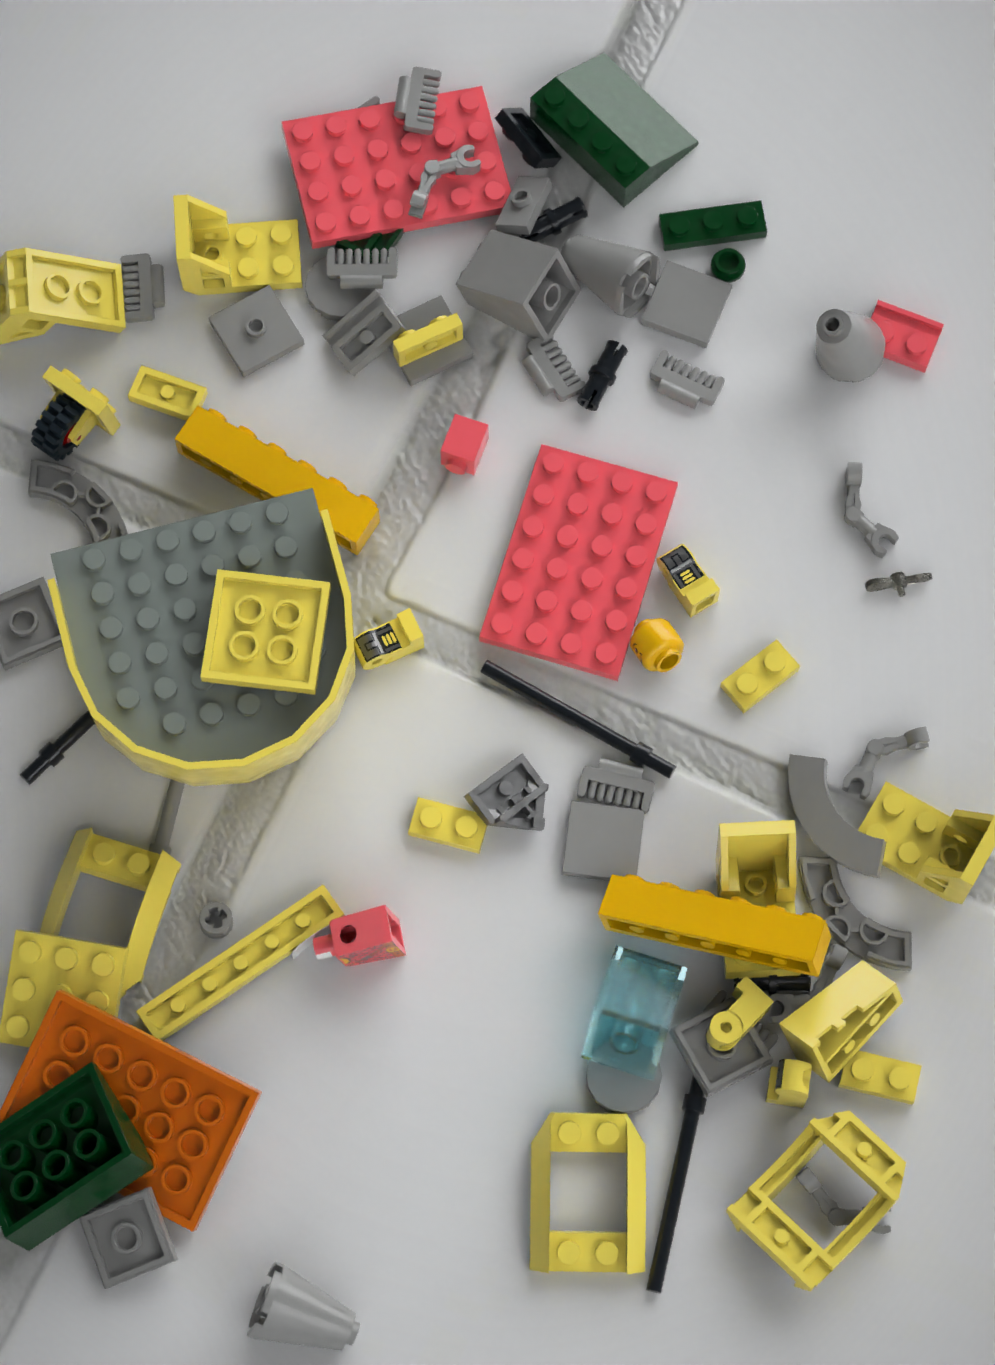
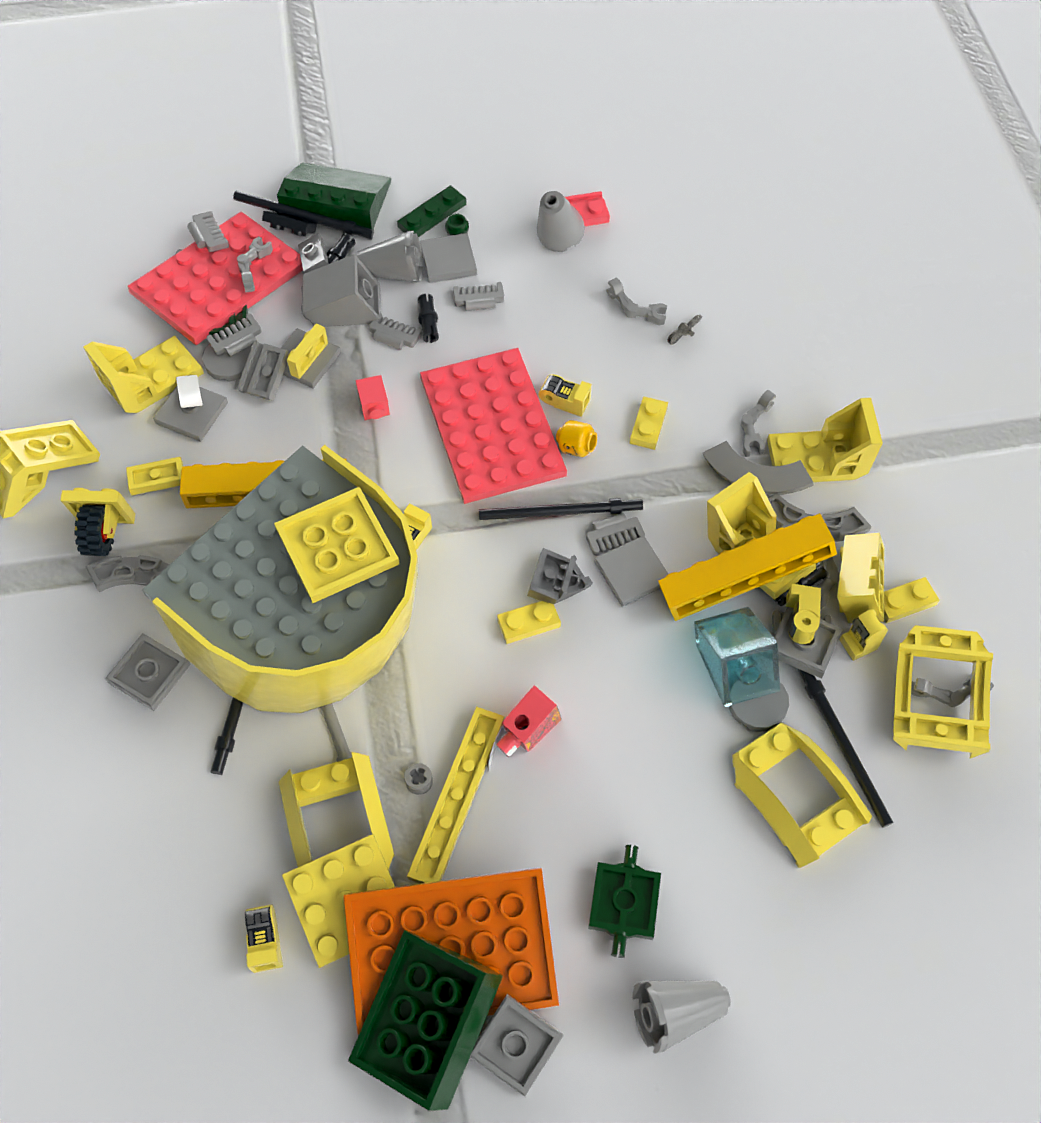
camera: 35 degrees left, 10 degrees down
(149, 285) = (96, 426): light grey piece -> none
(266, 308) = (189, 391): none -> white sticker
(328, 1179) = (625, 901): none -> dark green plate
(594, 187) = (348, 227): none -> black bar

